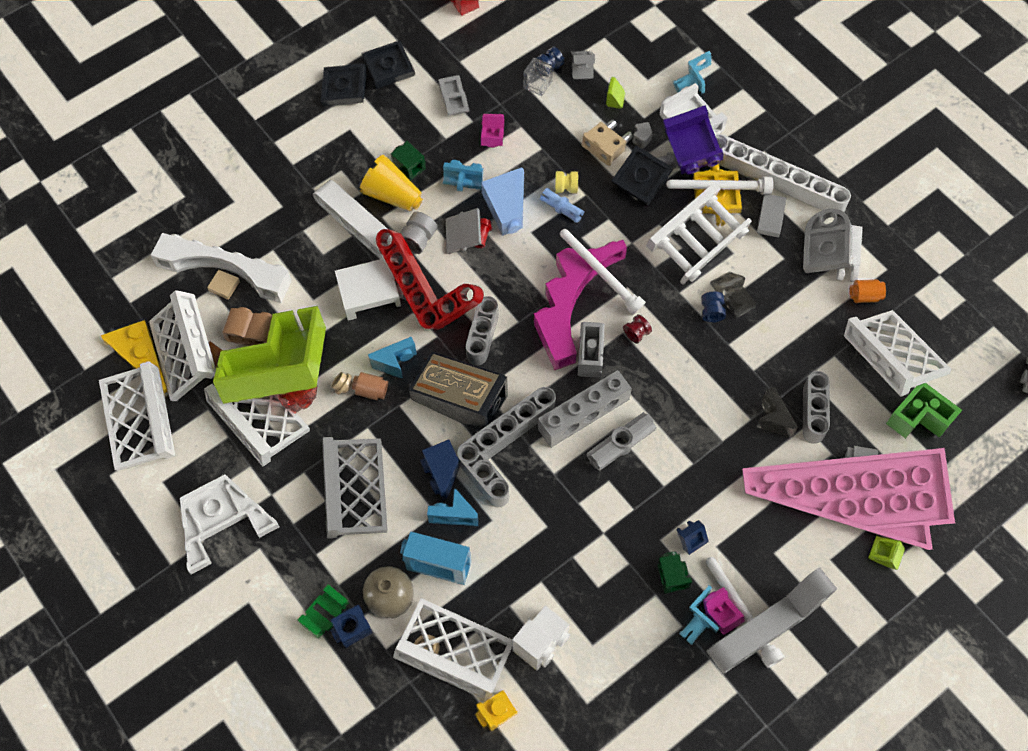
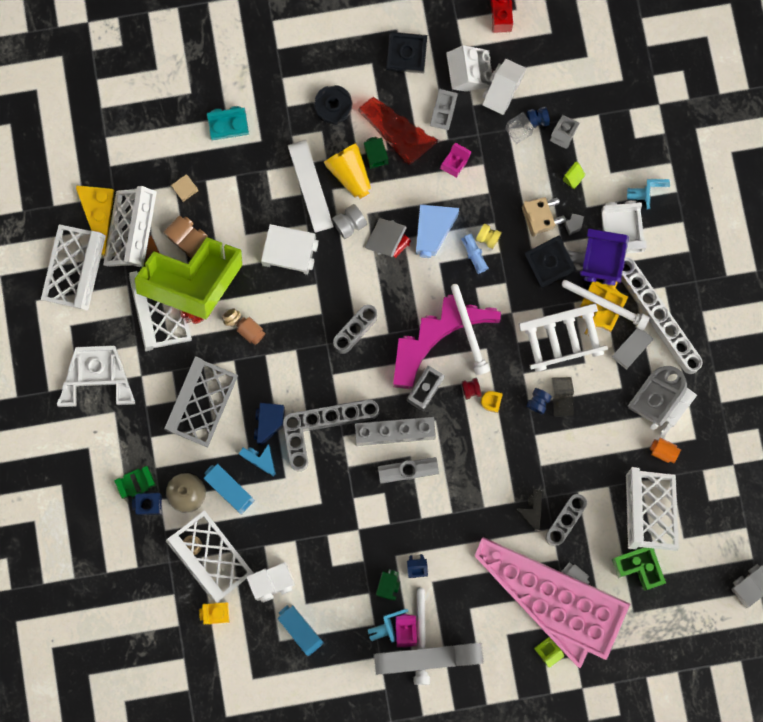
camera: 30 degrees right, 15 degrees up
(181, 254) = (164, 147): white arch -> none
(238, 203) = (228, 123): none -> teal bracket
(340, 150) = (344, 104): none -> black plate
(343, 84) = (361, 54): black plate -> none
(387, 358) = (273, 316): dark azure slope -> none
(421, 286) = (327, 270): red beam -> none
(427, 136) = (403, 136): none -> clear red wing
(458, 49) = (469, 68): none -> white slope
(459, 390) = (311, 369): slope -> none
(463, 175) = (410, 189): dark azure hips -> none
(501, 48) = (503, 86): none -> white brick
(606, 673) = (300, 630): none -> dark azure slope
(664, 333) = (491, 401): none -> yellow tile

